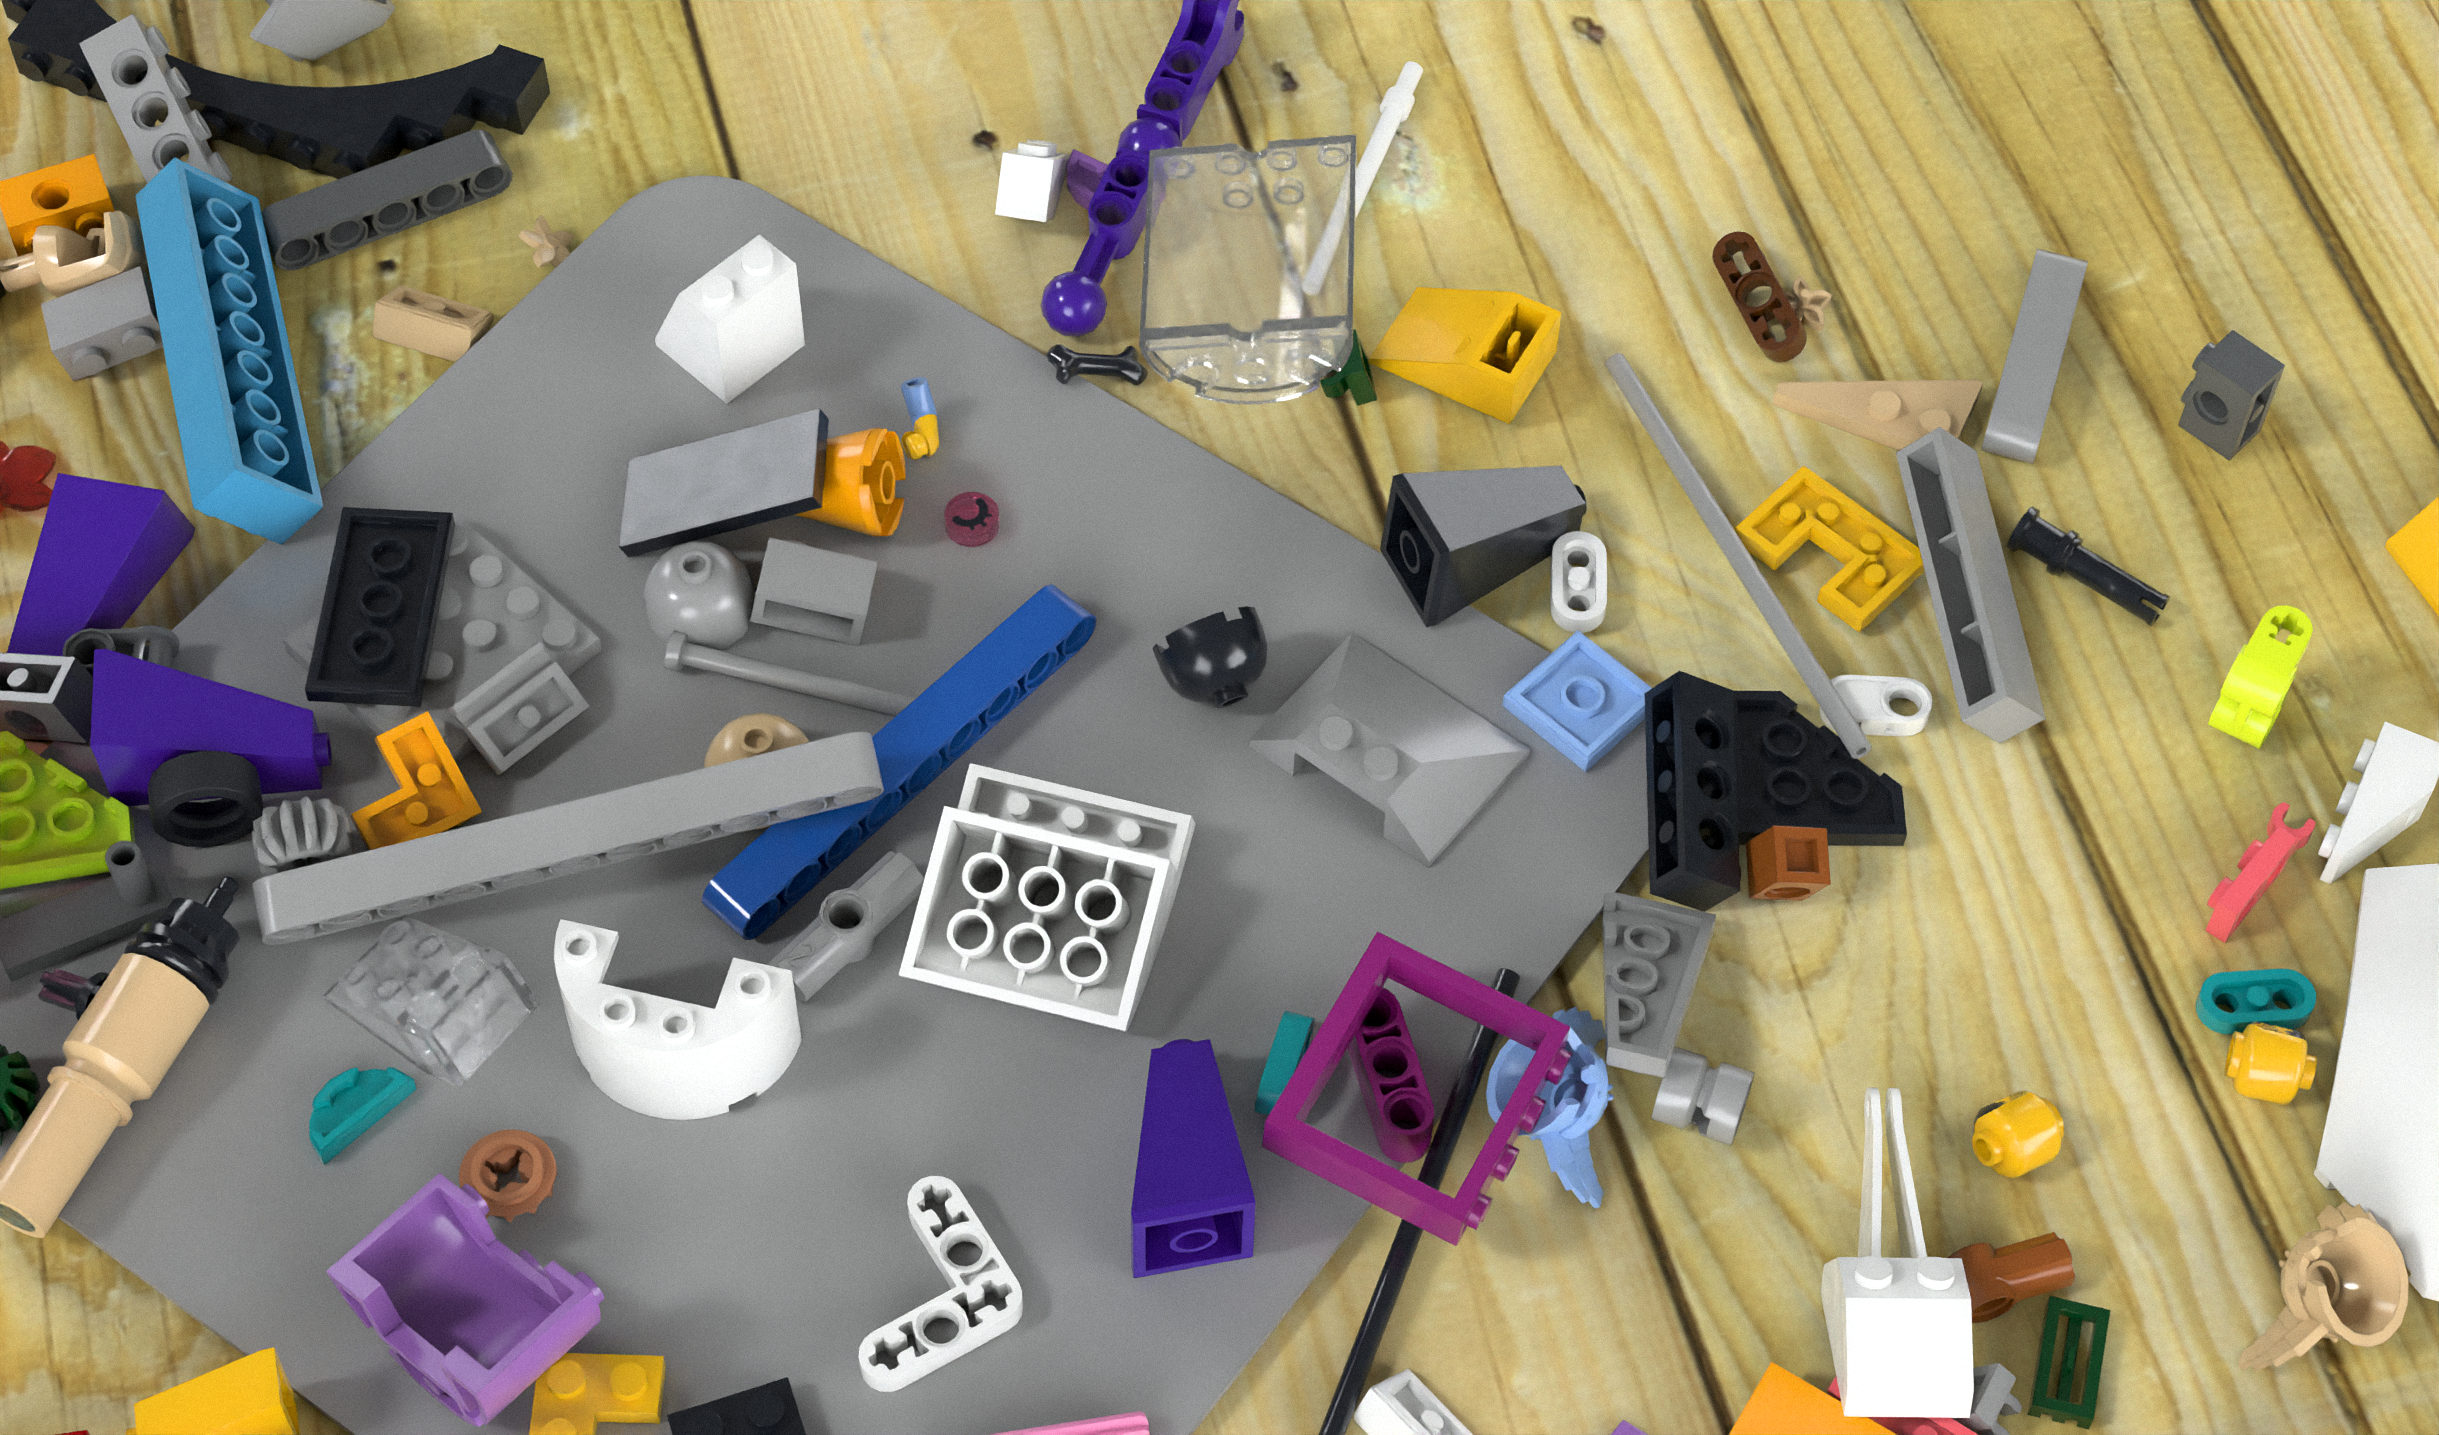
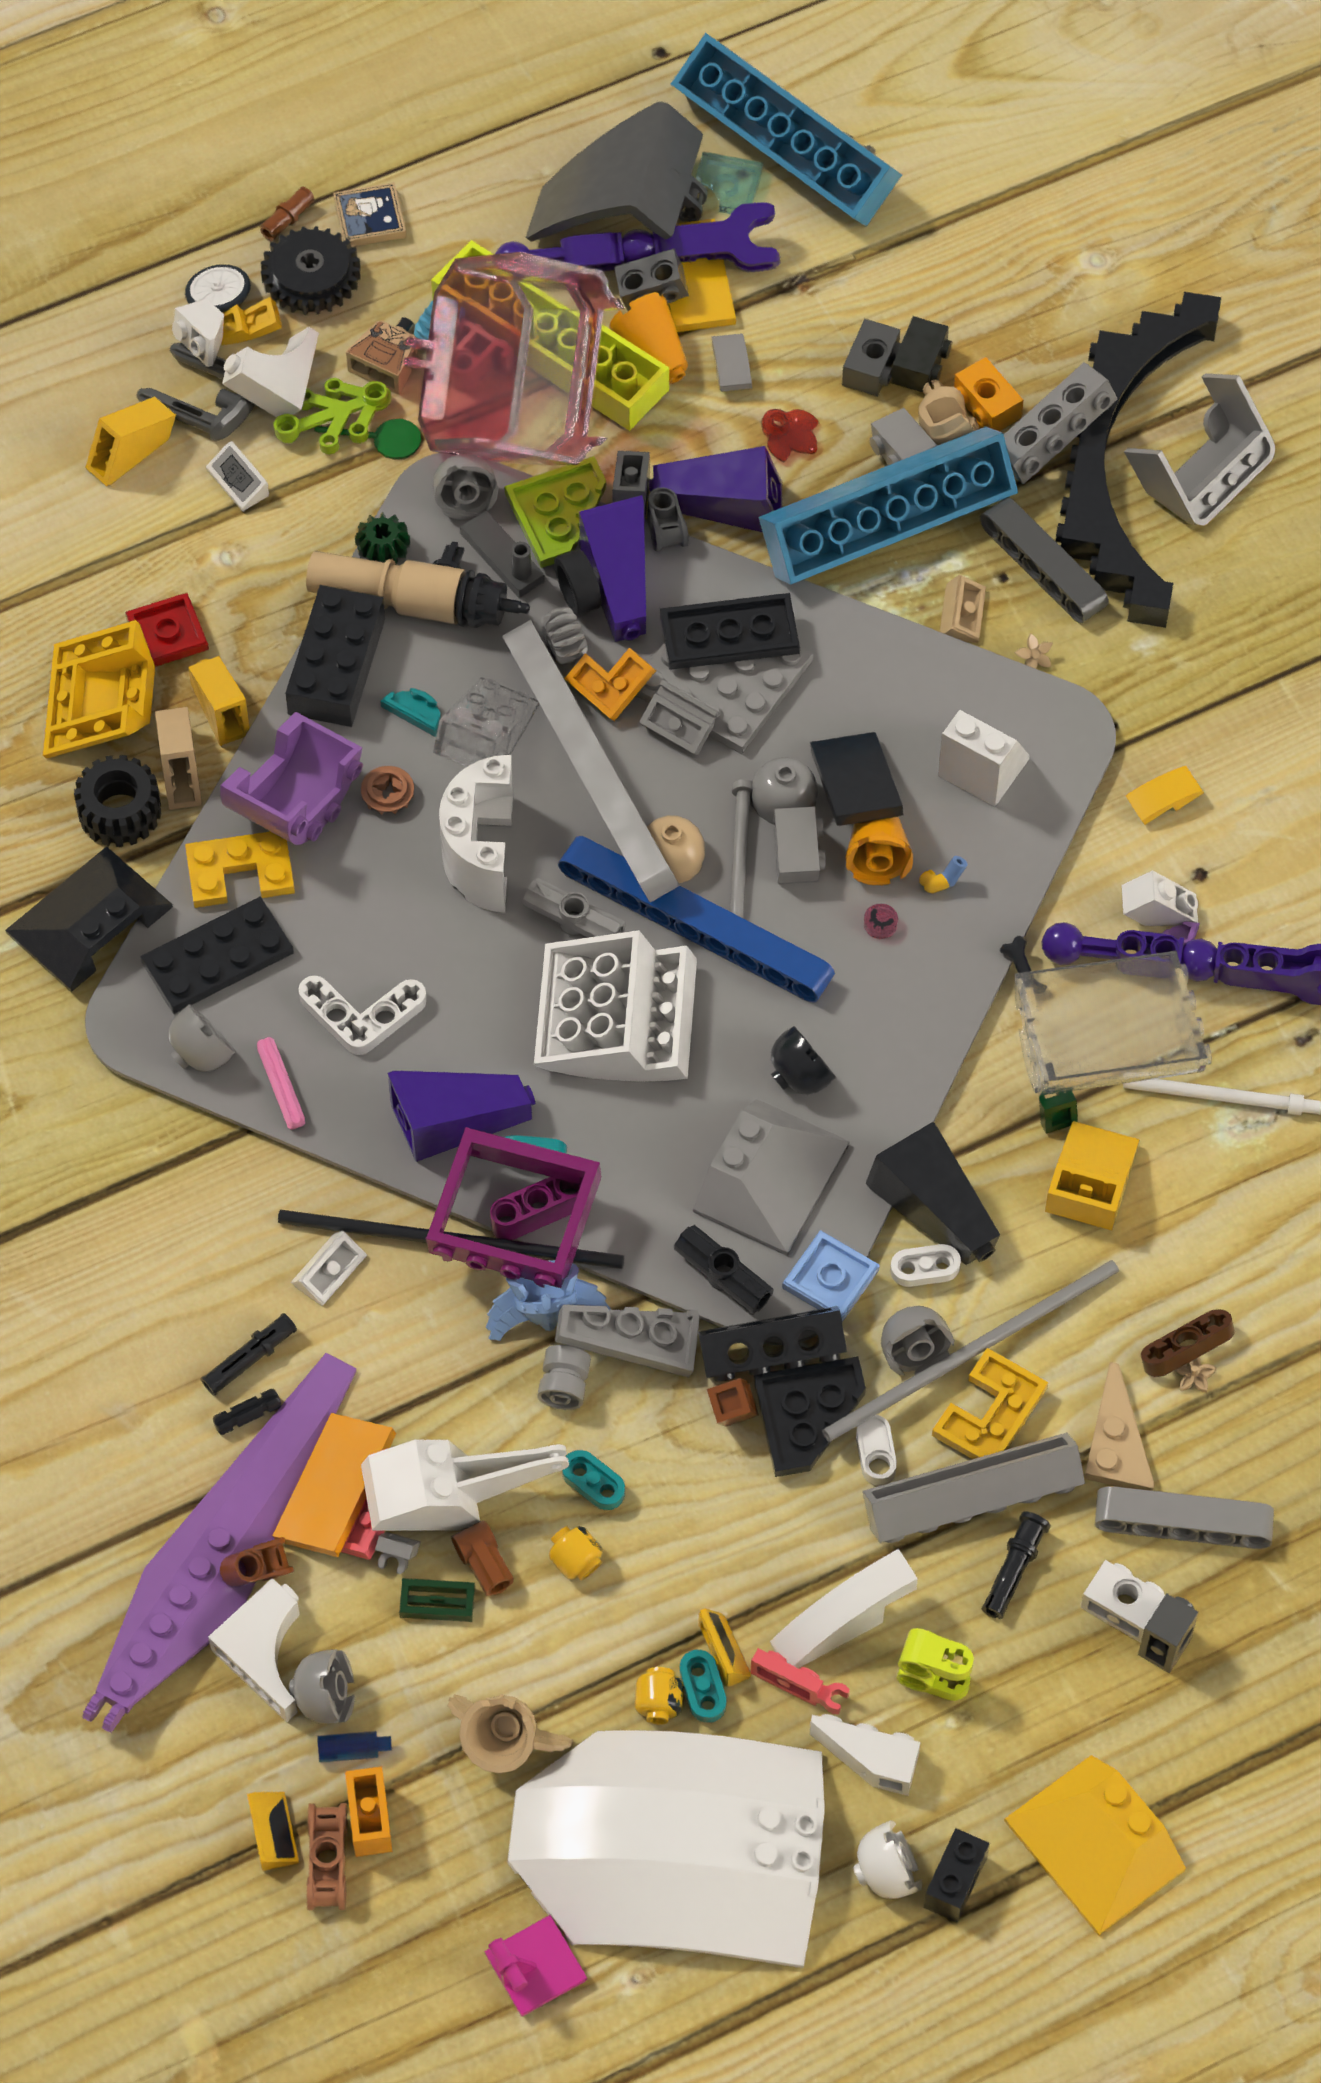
camera: 80 degrees right, 5 degrees up
(206, 1206) = (335, 655): none -> black brick
(846, 144) = (1164, 792): none -> yellow slope
(1531, 848) = (738, 1282): none -> black piece
(1707, 610) = (915, 1339): none -> light grey cylinder
(1880, 1073) = (595, 1480): none -> teal plate
(2160, 447) = (1102, 1601): none -> white brick
(2161, 777) = (846, 1610): none -> white slope
(2187, 967) = (723, 1647): none -> yellow slope

